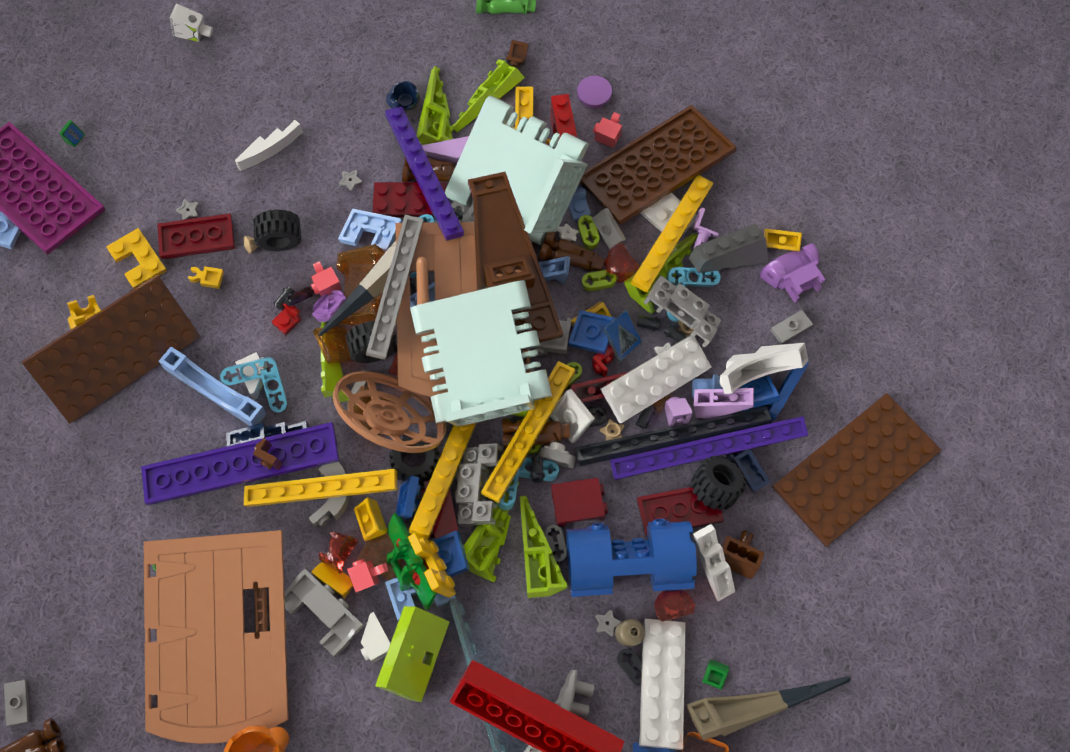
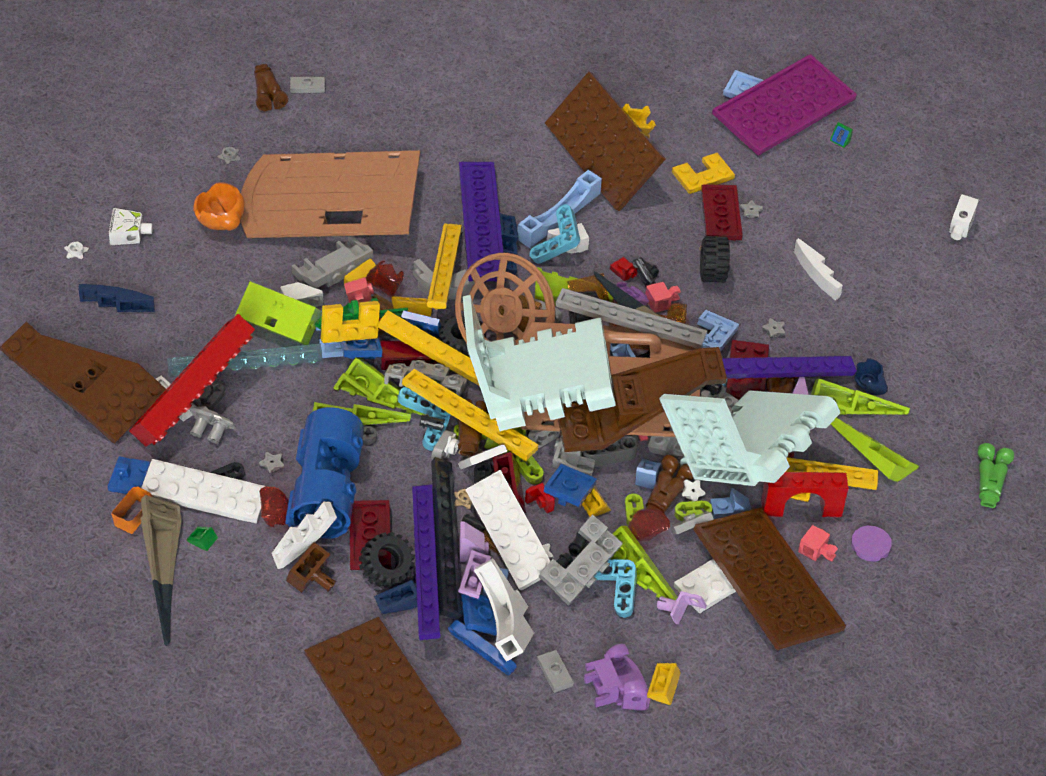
camera: 95 degrees right, 20 degrees down
(208, 277) = (676, 217): yellow plate -> none
(267, 460) = (481, 226): reddish brown bracket -> none
(517, 53) = (921, 478): reddish brown bracket -> none
(578, 501) = (394, 455): dark red panel -> none
(622, 335) = (563, 510): piece -> none
(630, 632) = (257, 470): dark tan head -> none
(671, 234) = (679, 572): yellow plate -> none
(731, 250) = (650, 624): dark grey wedge -> none

